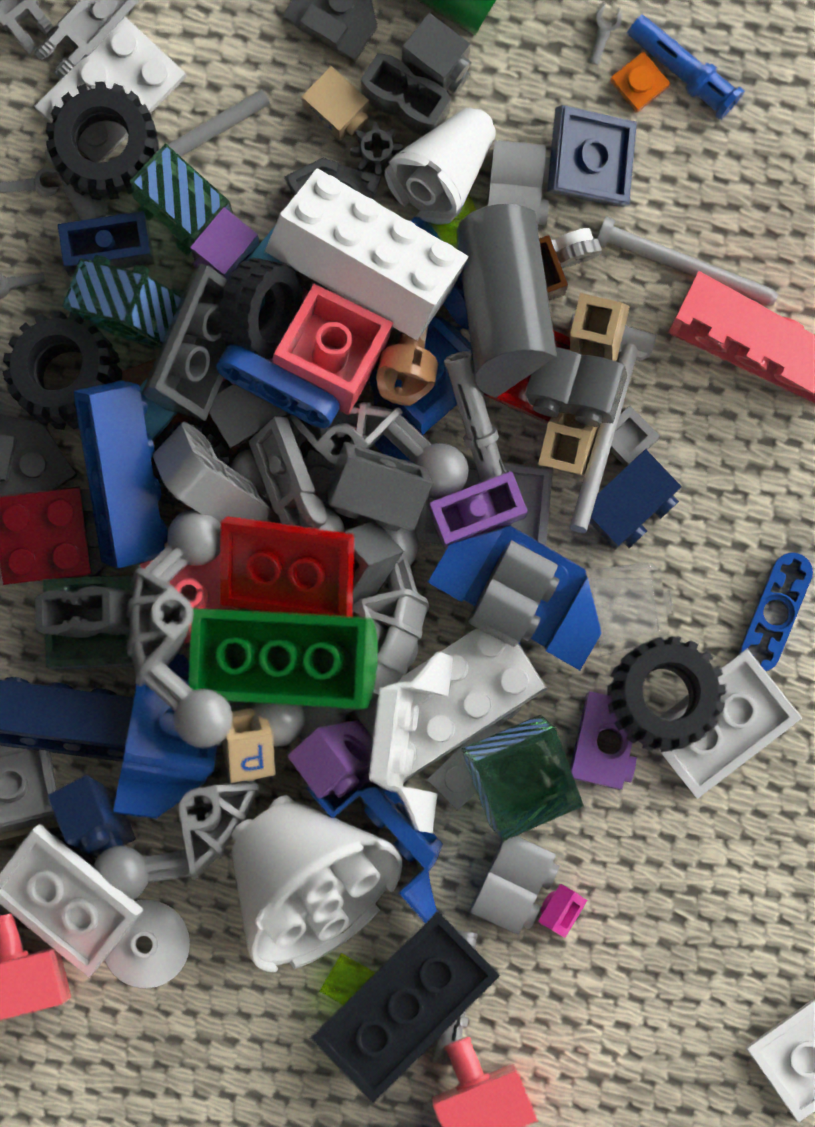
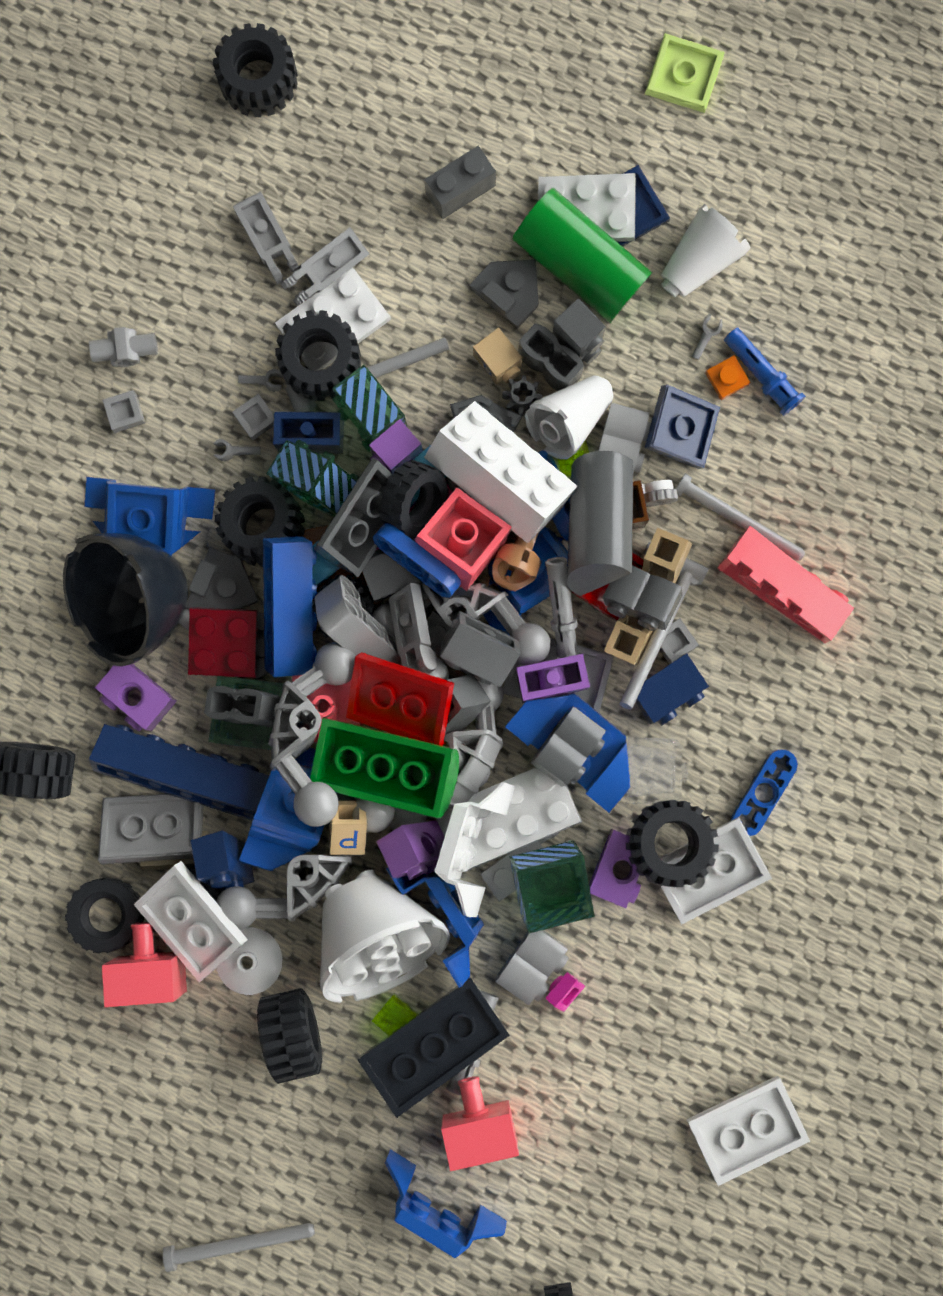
camera: 20 degrees right, 0 degrees up
(30, 234) = (255, 417): none -> light grey plate
(217, 1025) = (289, 1035): none -> black tyre

